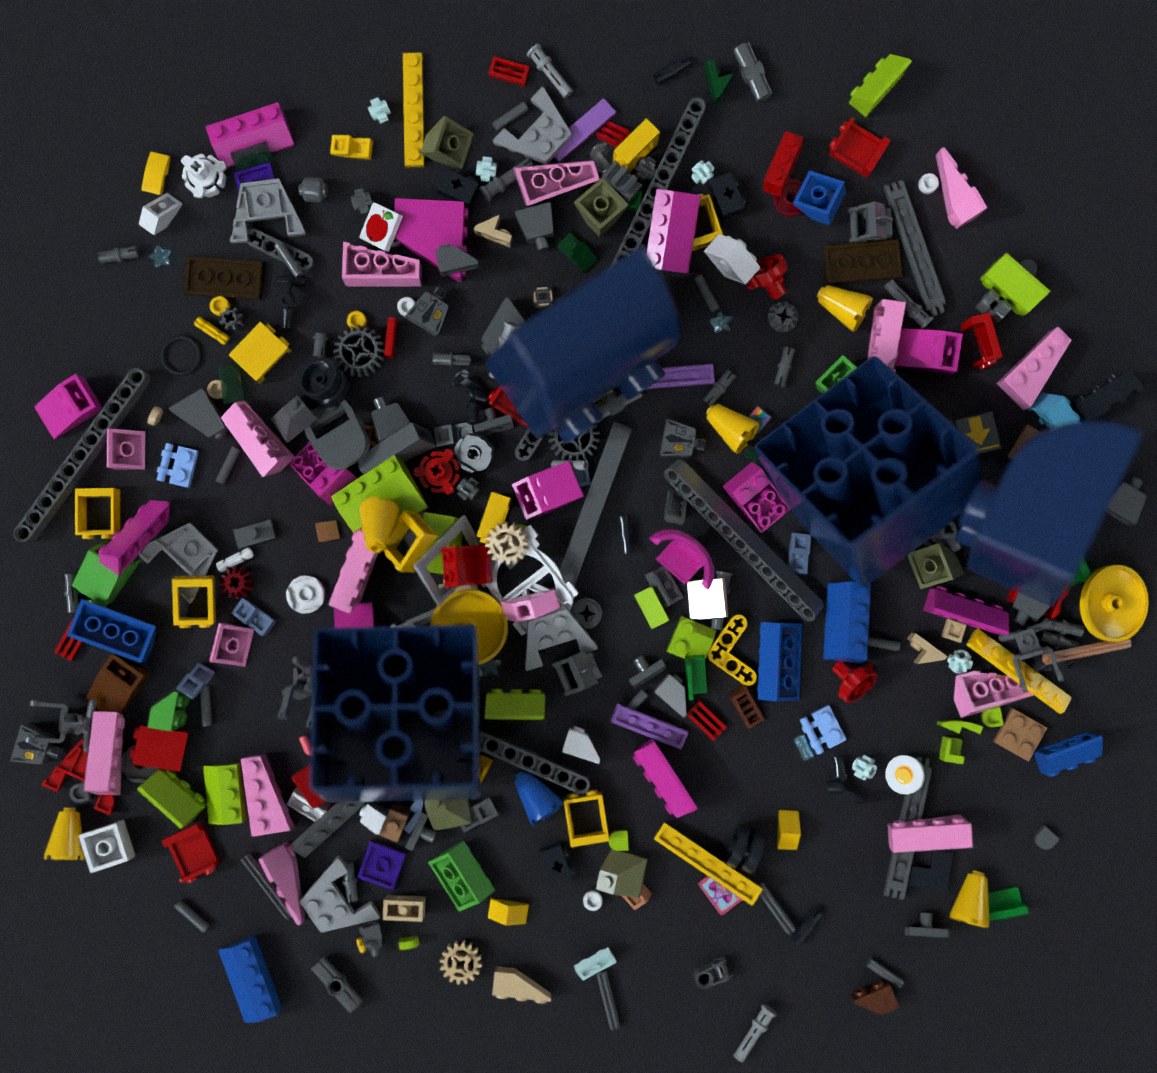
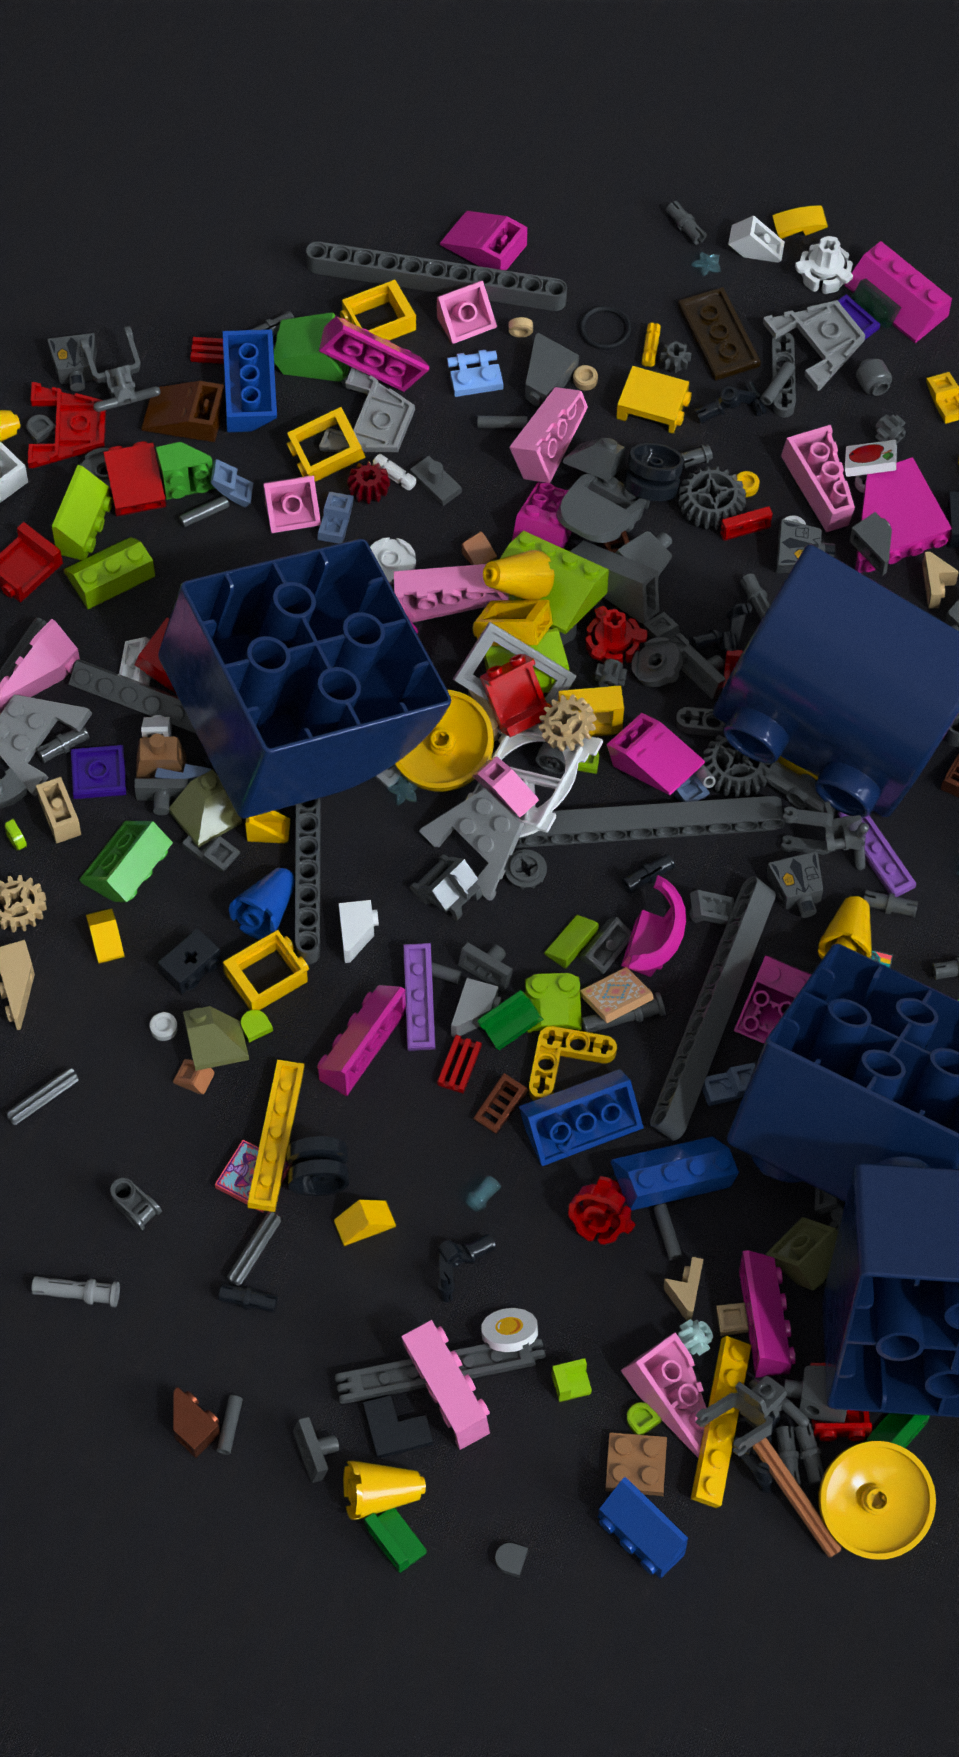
camera: 65 degrees right, 25 degrees down
(105, 754) = (99, 424): bright pink wedge -> none
(218, 305) = (686, 337): yellow tile -> none
(231, 383) = (601, 385): clear green plate -> none
(264, 799) = (124, 609): bright pink wedge -> none
(515, 704) = (370, 831): lime slope -> none
(595, 963) = (83, 1058): light aqua plate -> none
(657, 408) = (840, 833): none -> dark grey piece
(828, 727) = (524, 1215): light blue plate -> none
(864, 767) = (493, 1276): light aqua gear -> none
(956, 725) = (608, 1370): lime slope -> none

